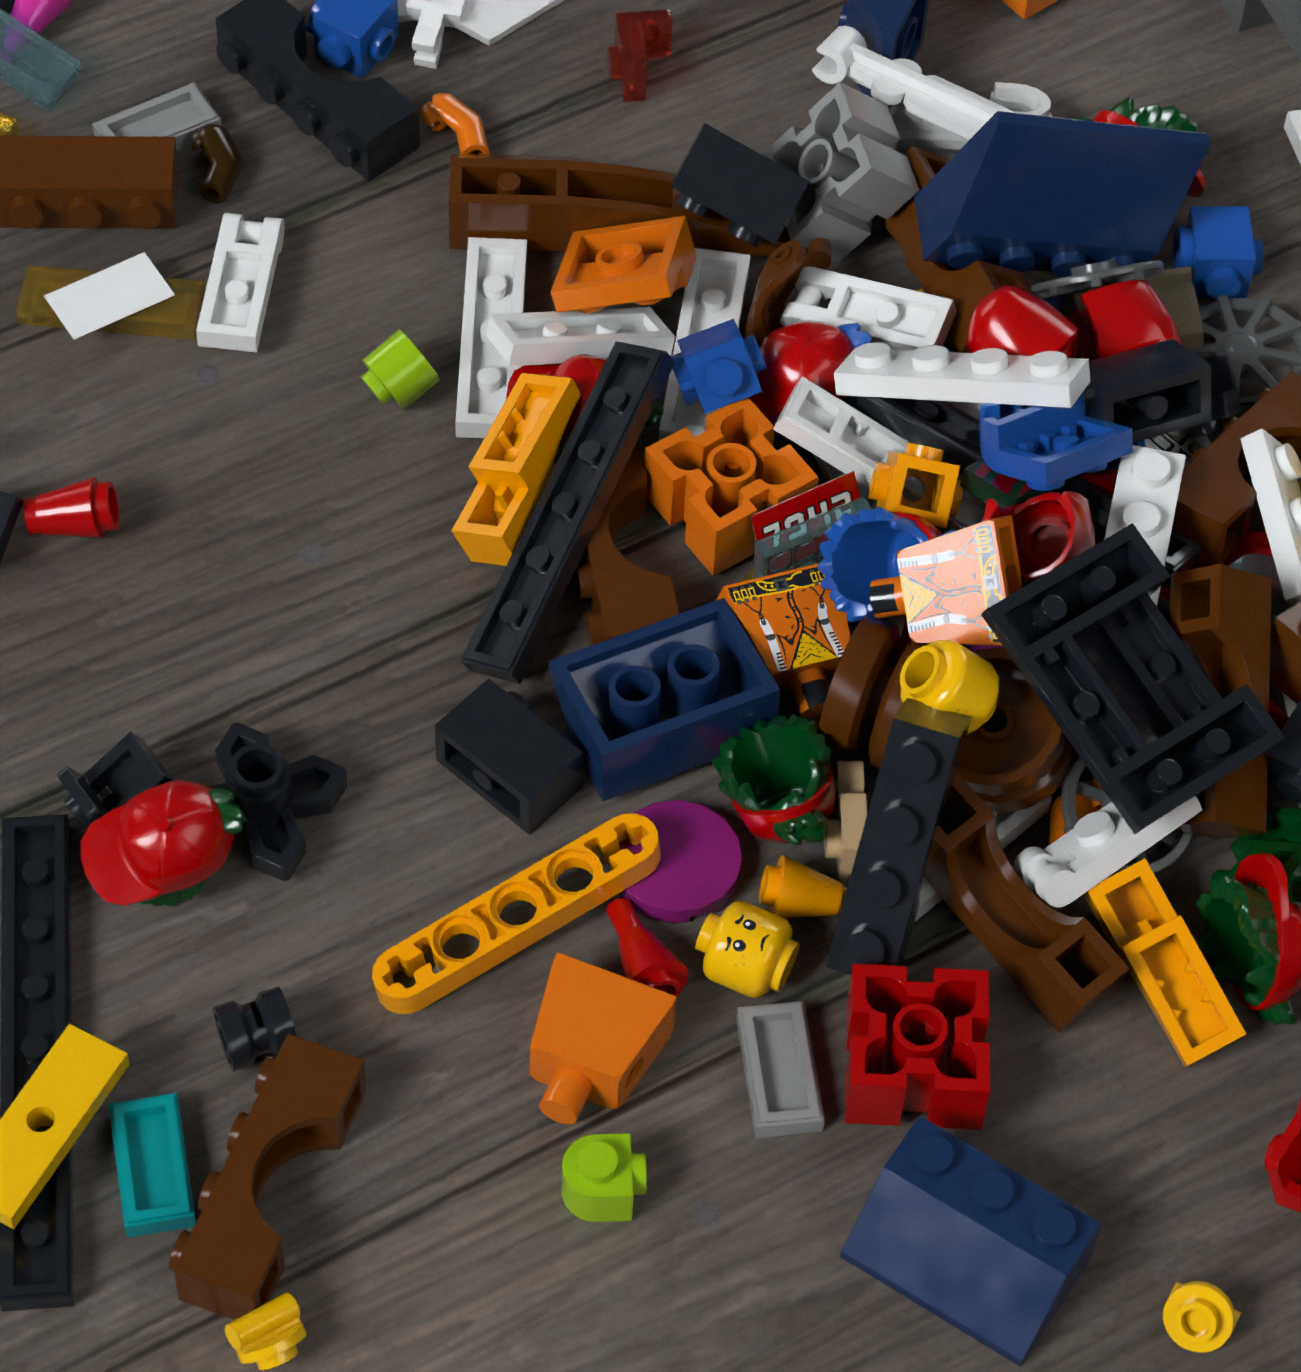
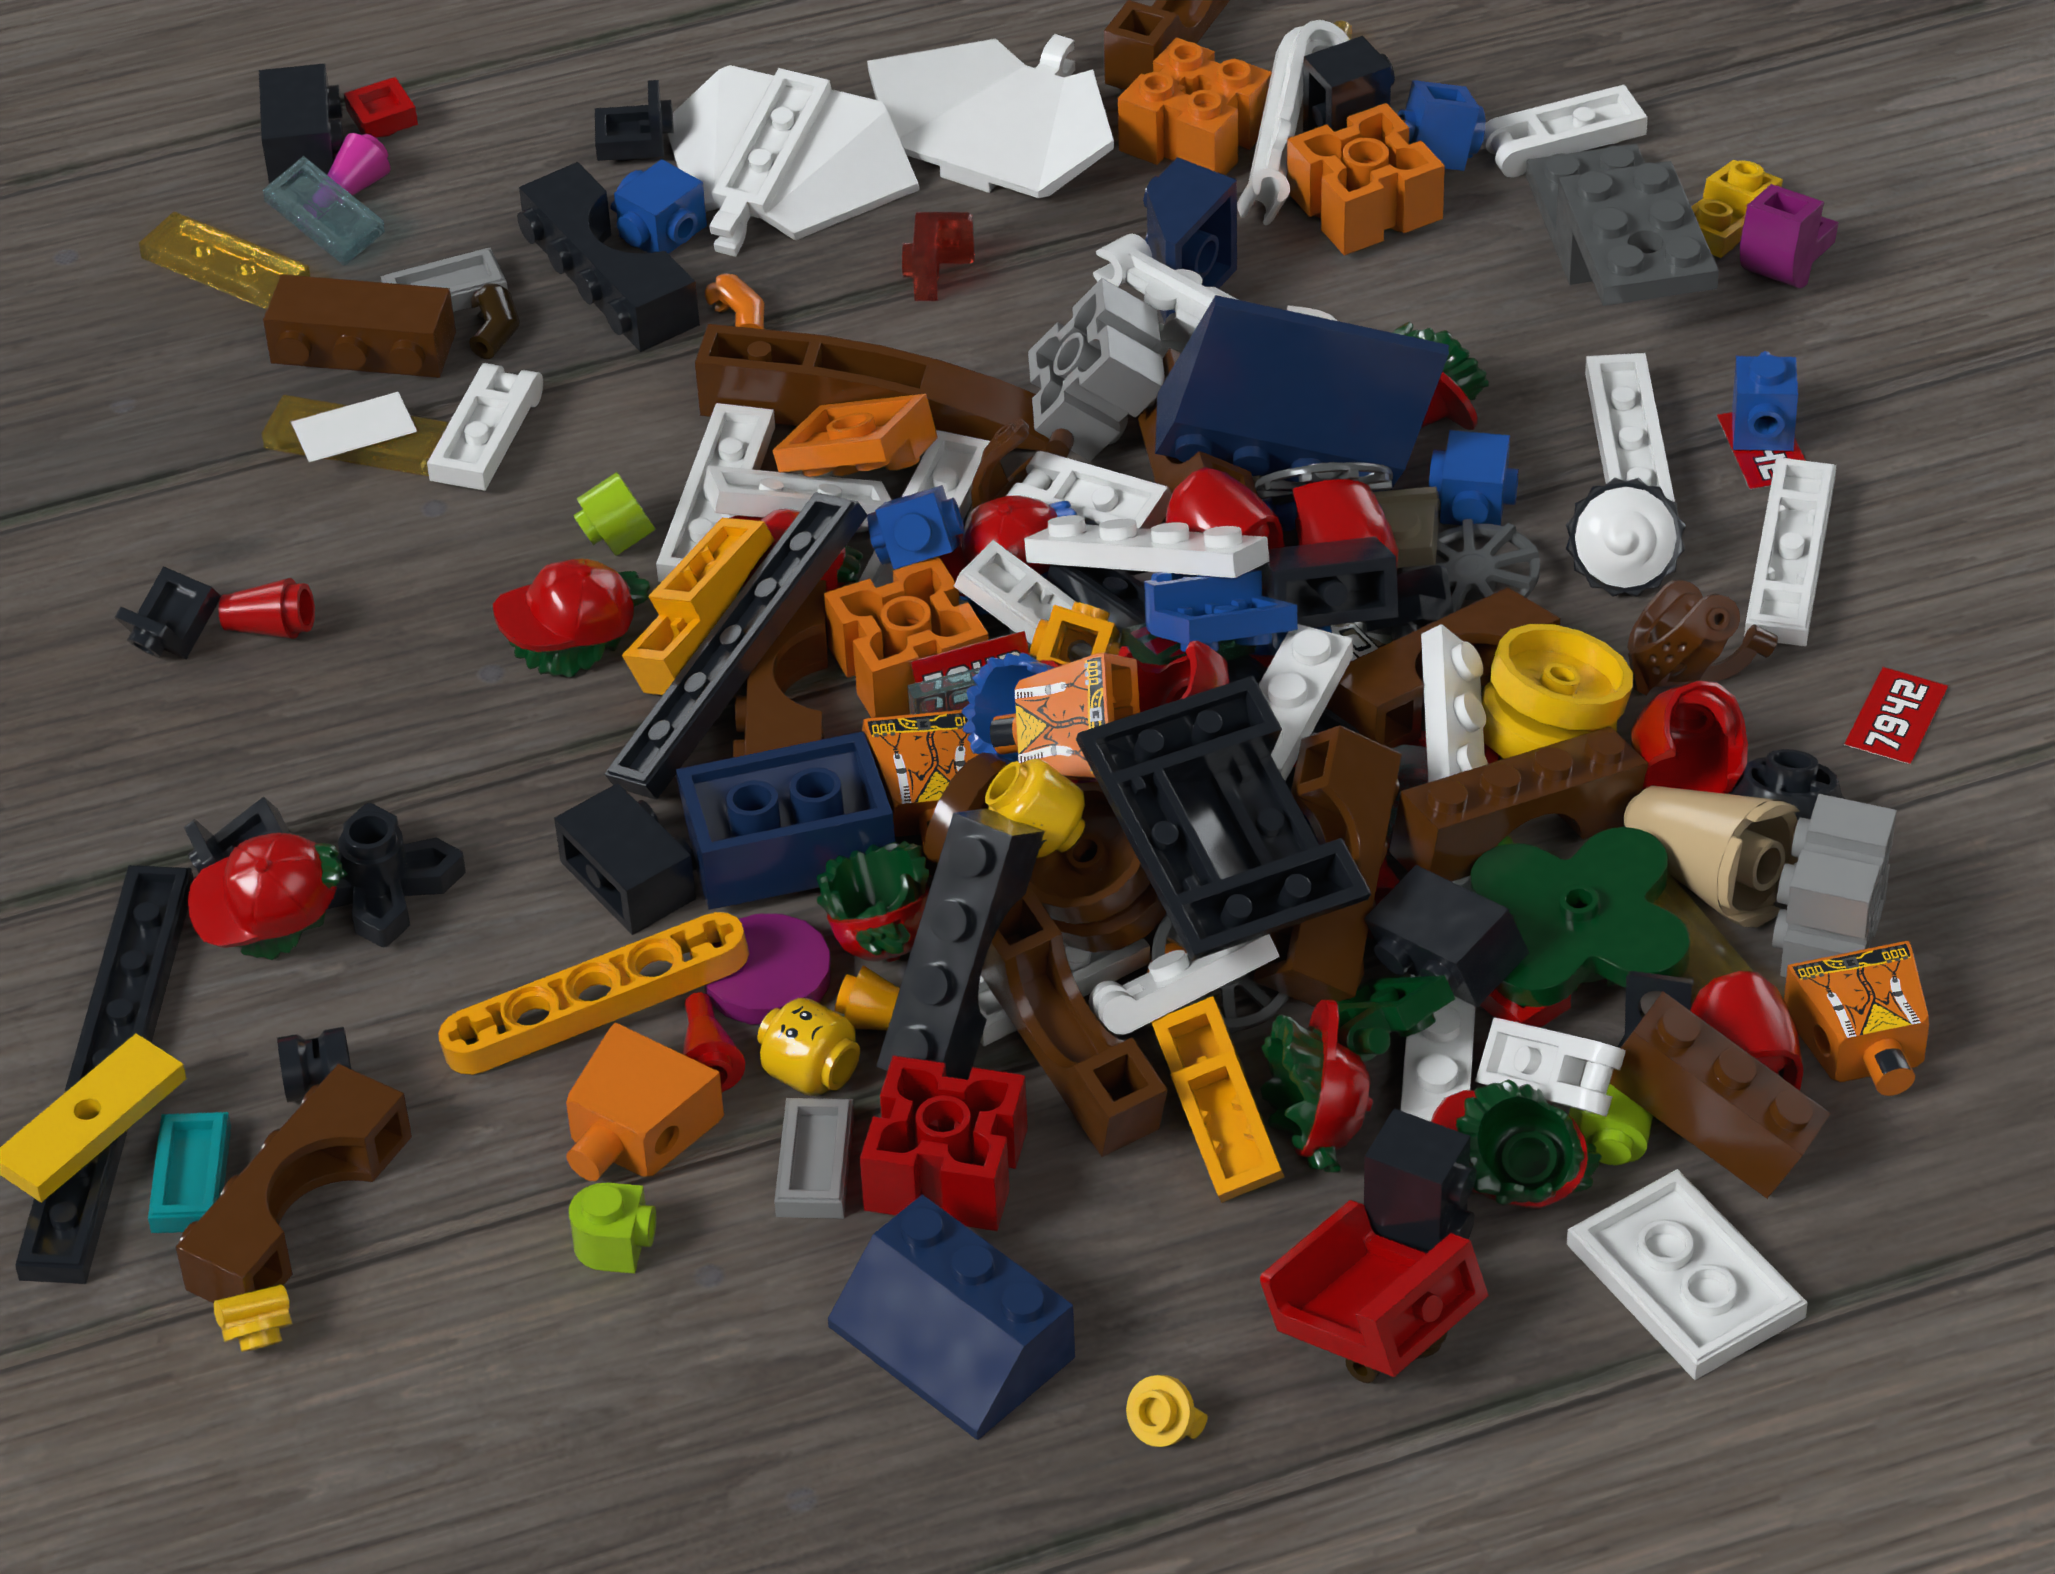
camera: 15 degrees right, 10 degrees down
(384, 488) = (569, 614): none -> red hair
(738, 185) = (982, 367): black brick -> none

